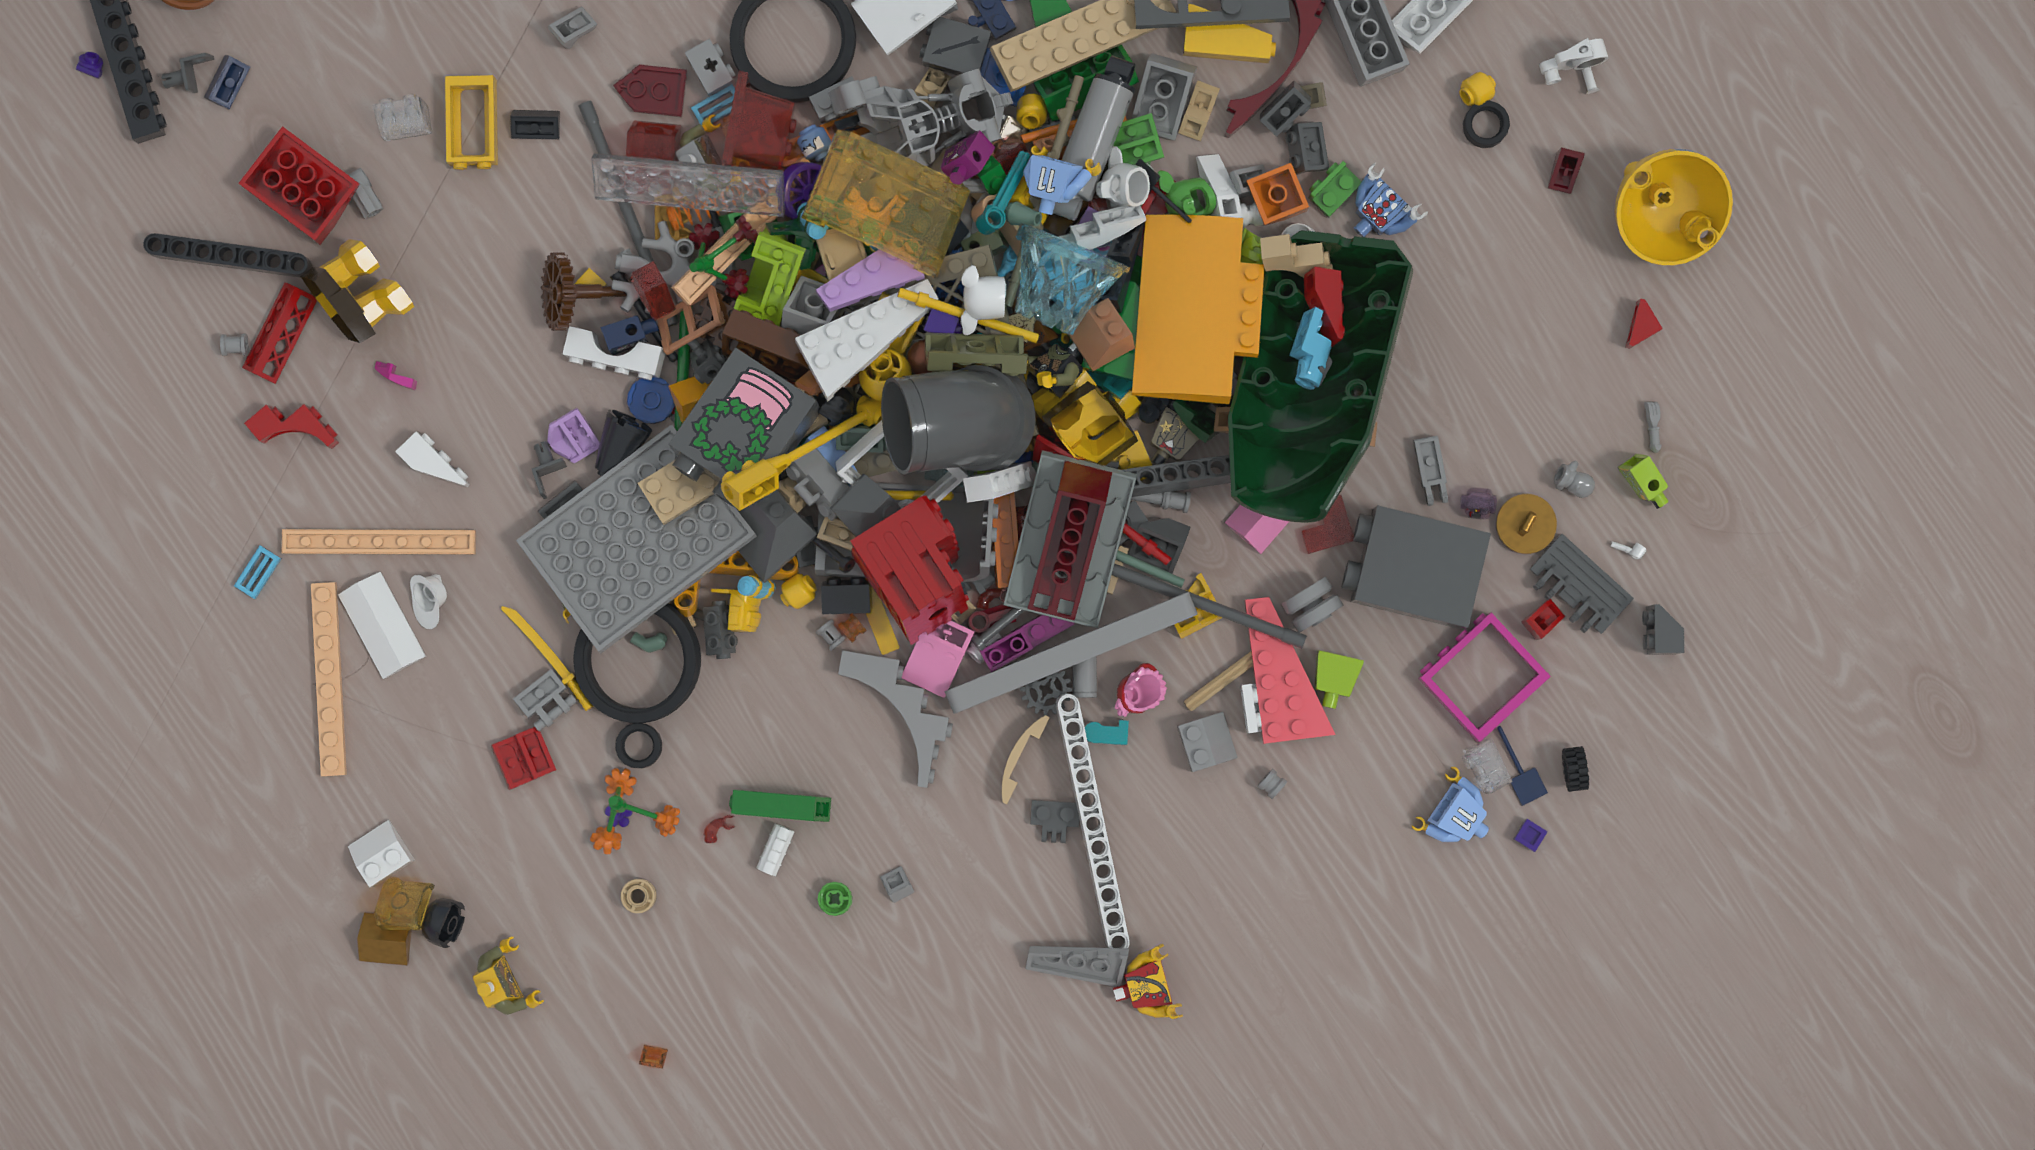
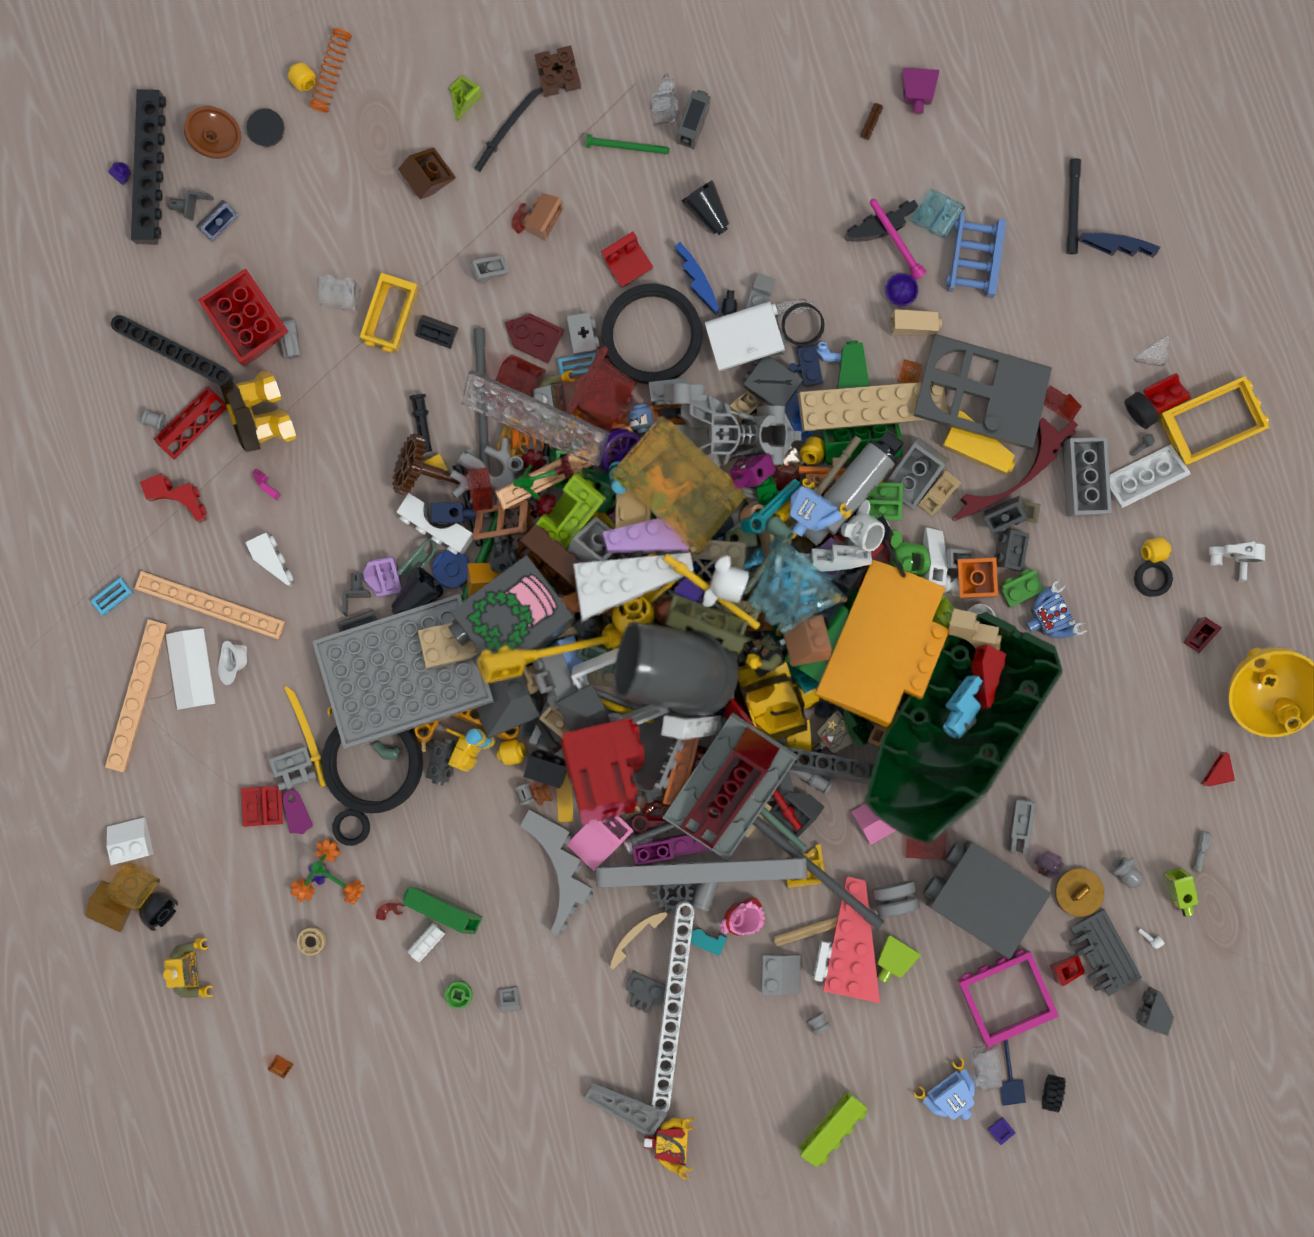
camera: 20 degrees right, 0 degrees up
(551, 229) = (420, 415): none -> black pin
(567, 752) = (296, 813): none -> magenta piece
(606, 397) = (418, 555): none -> sand green piece
(1331, 900) = (832, 1129): none -> lime slope

